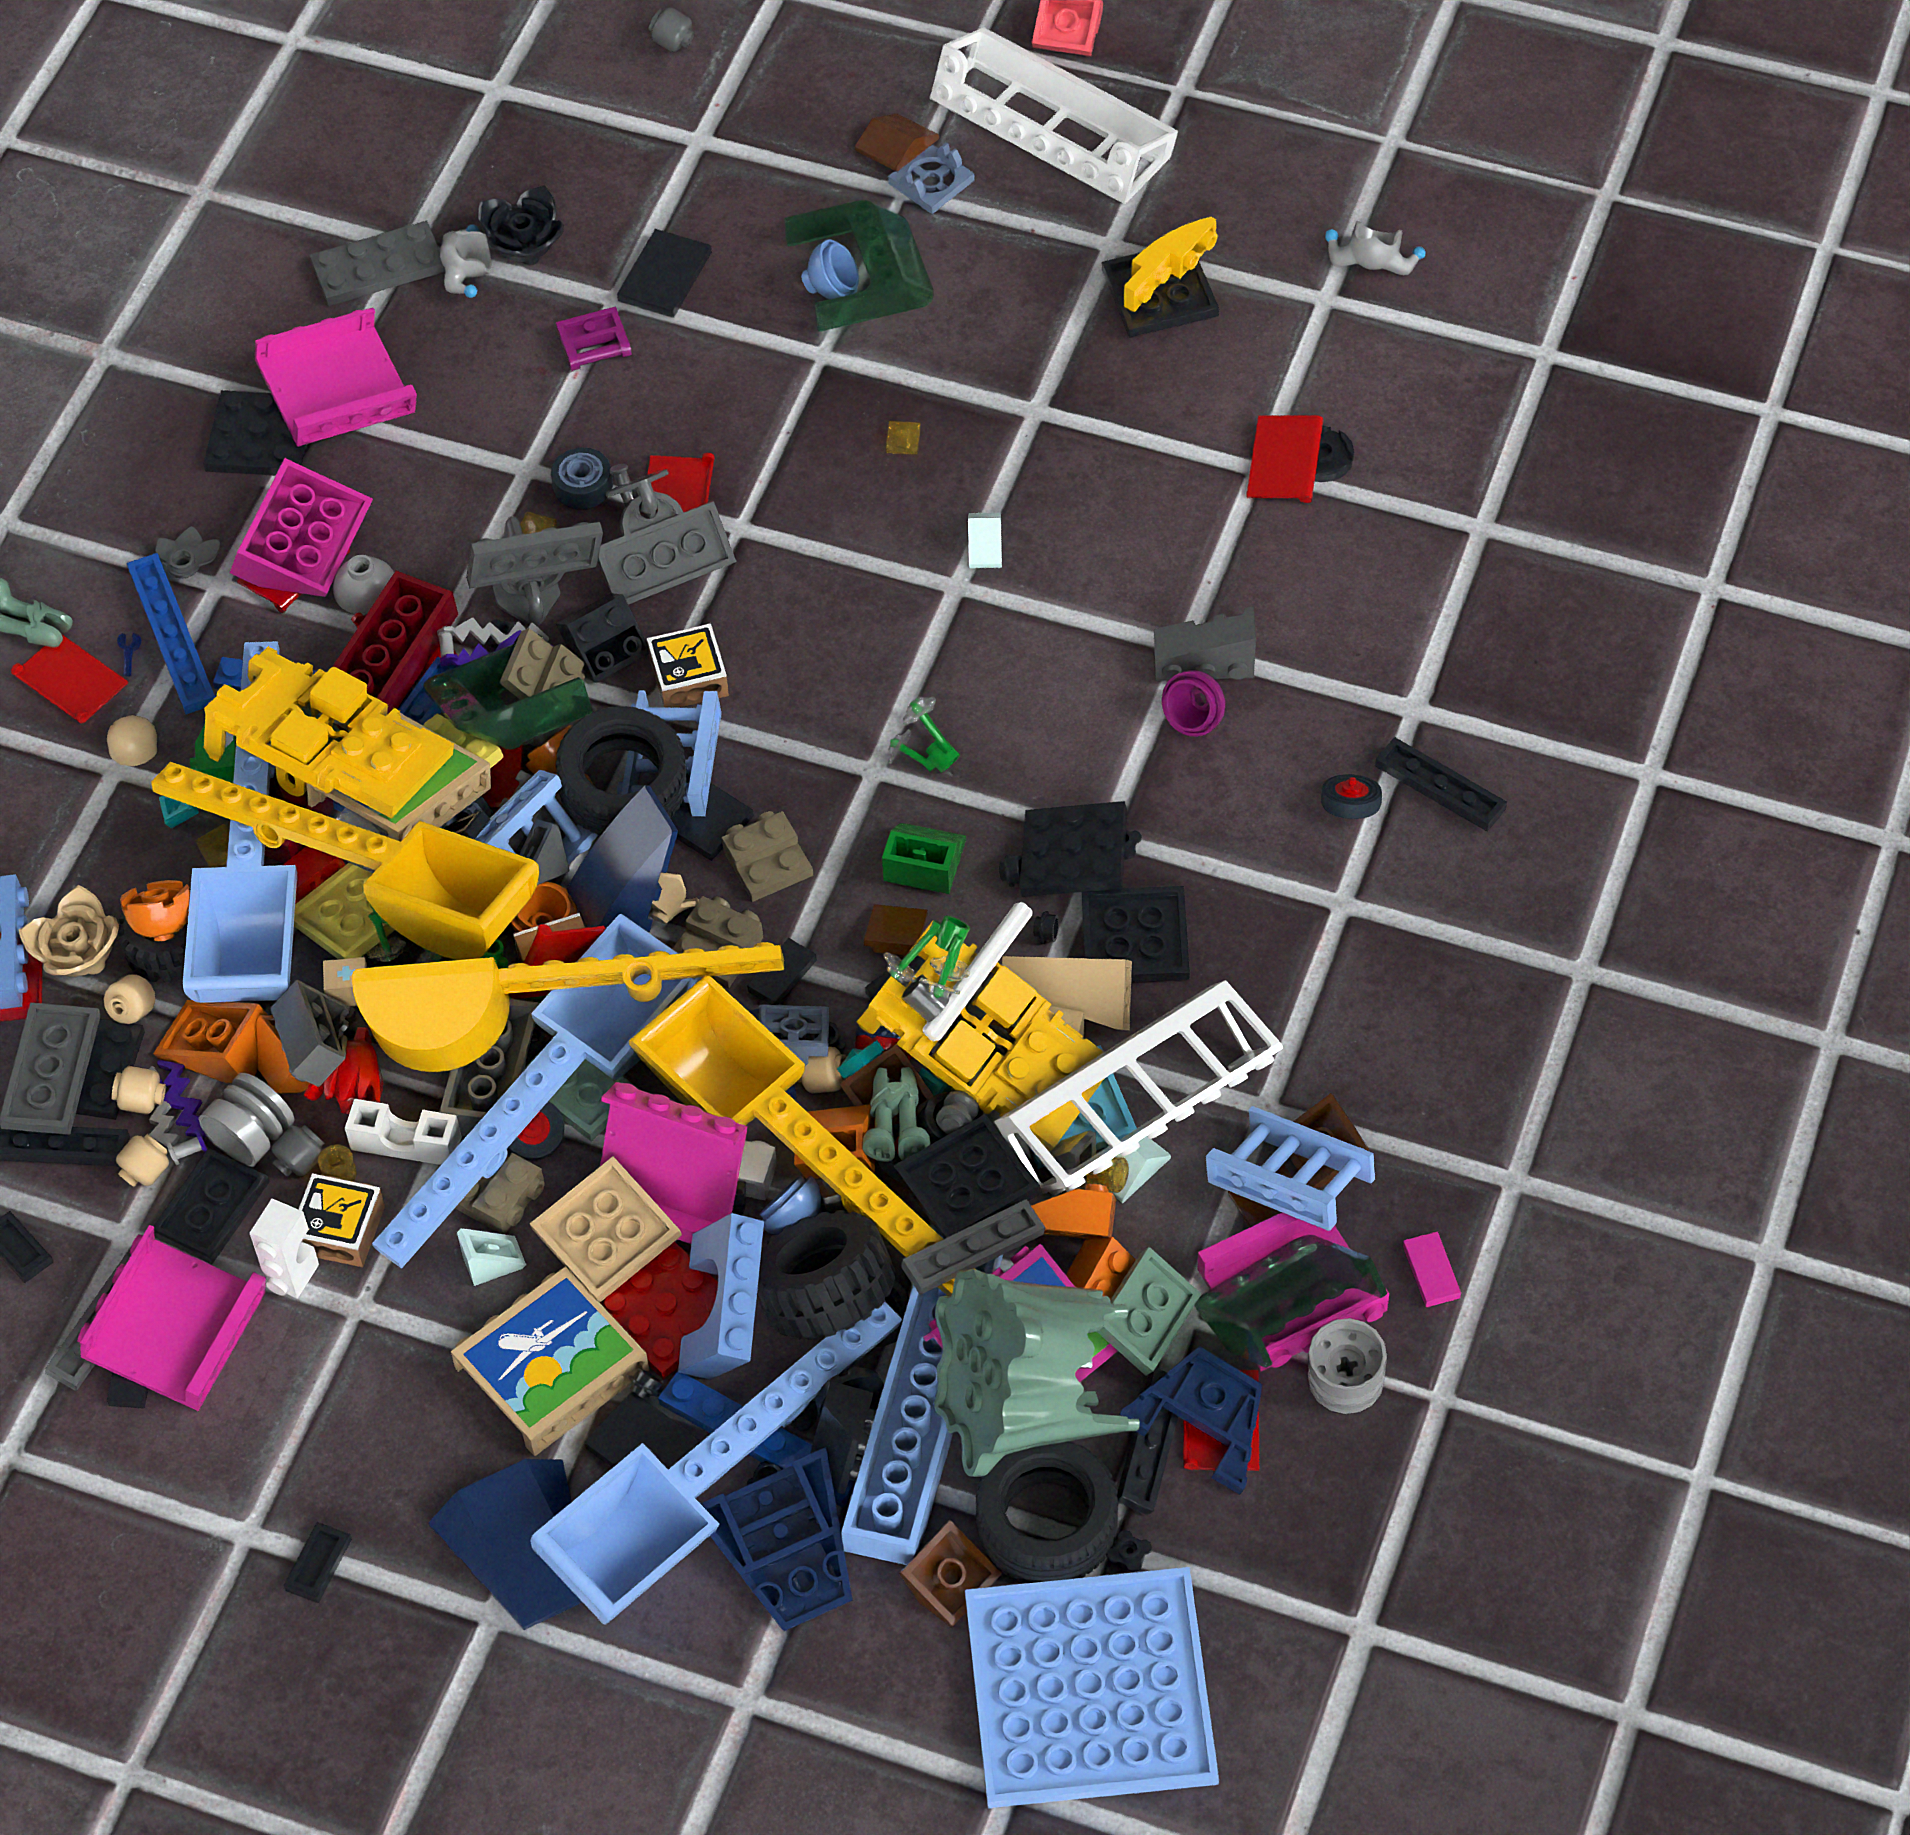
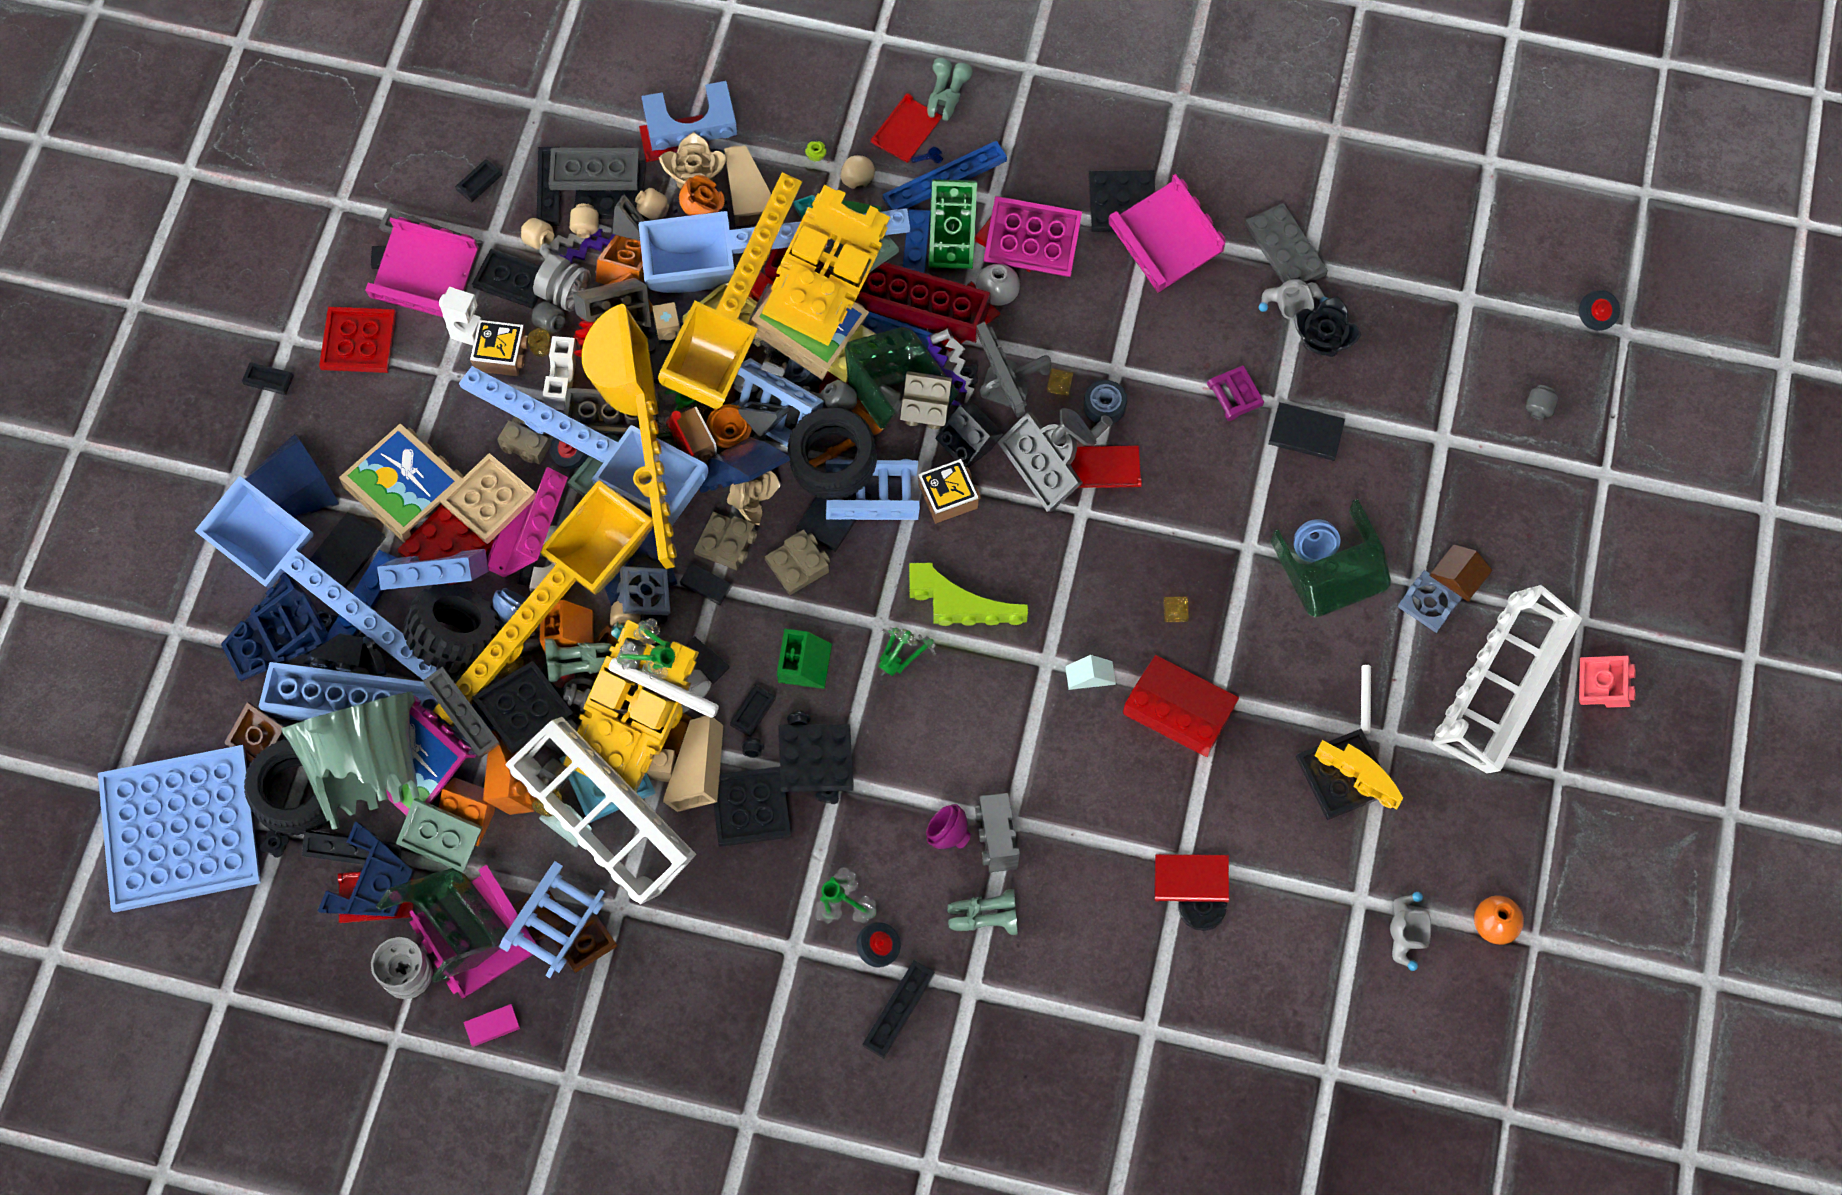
camera: 80 degrees right, 10 degrees up
(84, 796) = (815, 155): none -> lime plate
(126, 868) = (746, 185): none -> tan slope
(153, 1035) = (626, 219): none -> dark grey slope
(187, 553) = (1016, 174): dark grey plate -> none
(261, 606) = (952, 223): none -> green brick
(276, 1423) = (357, 339): none -> red plate
(489, 1254) = (477, 436): light aqua slope -> none
(534, 752) = (840, 395): none -> dark grey head
(645, 1384) = (388, 540): black plate -> none
(859, 677) = (957, 605): none -> lime arch
(894, 928) = (743, 649): reddish brown piece -> none
(984, 922) = (752, 710): none -> black tile
(1046, 444) = (1180, 705): none -> red slope
(1057, 258) = (1366, 698): none -> white bar
(1282, 824) = (837, 890): none -> clear plant
(1307, 688) = (974, 918): none -> sand green piece
(1365, 164) = (1494, 928): none -> orange piece

